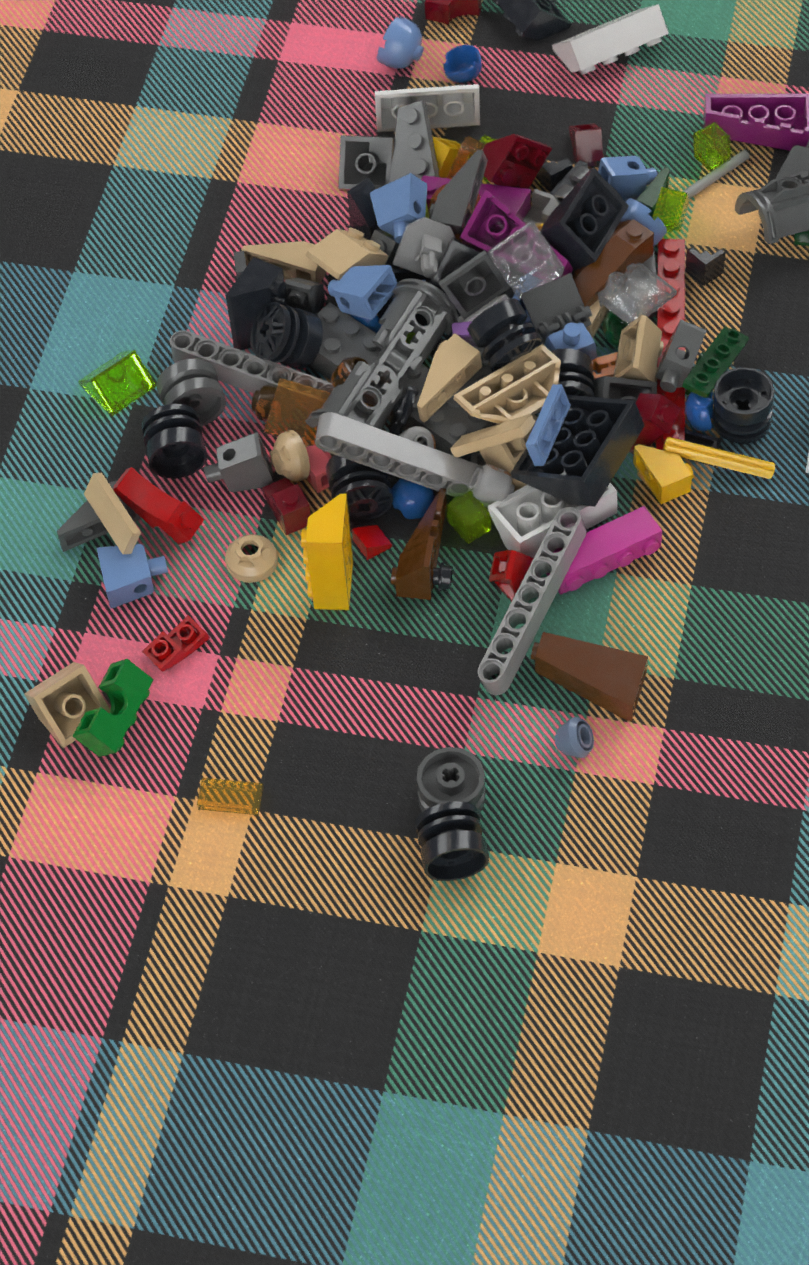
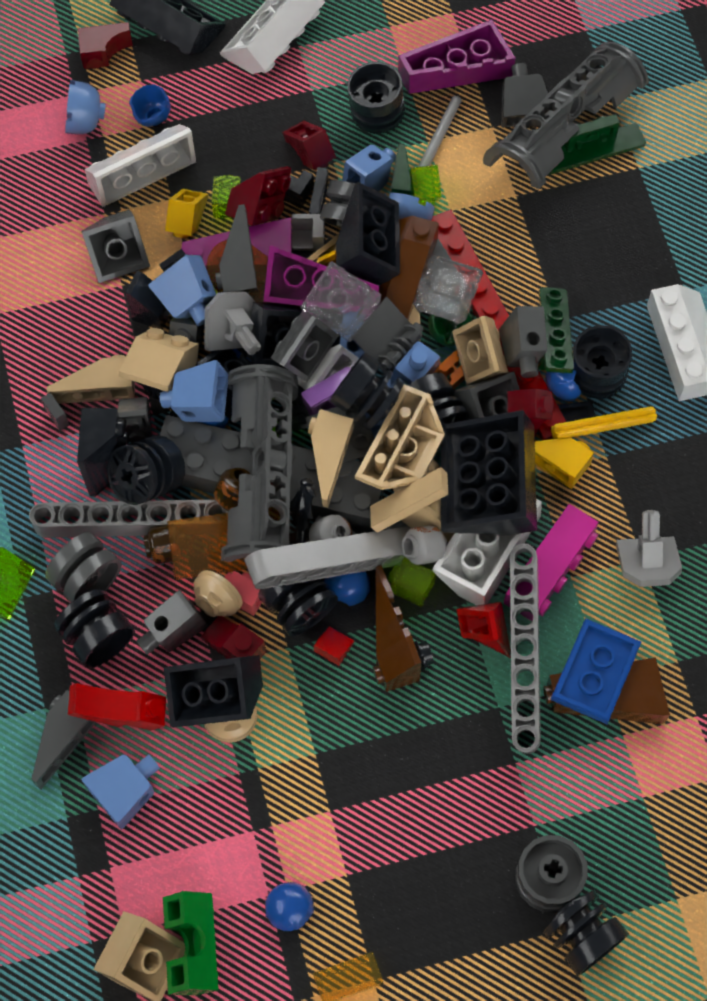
camera: 30 degrees left, 10 degrees up
(112, 513) = (81, 738): tan tile -> none
(177, 645) = (208, 841): red slope -> none
(213, 720) = (289, 906): none -> blue hair
(243, 520) = (213, 690): none -> black slope
(329, 555) = (323, 694): yellow slope -> none
(413, 143) = (157, 217): wing -> none
(465, 152) = (213, 207): clear orange slope -> none
(548, 425) = (455, 468): medium blue tile -> none
(575, 738) = (631, 768): sand blue cone -> none
(585, 643) = (596, 671): none -> blue tile
(666, 123) = (376, 97): none -> black wheel
(695, 580) = (650, 558): none -> light grey piece
(705, 266) = (483, 229): black panel -> none
(712, 146) = (427, 105): clear neon green brick -> none

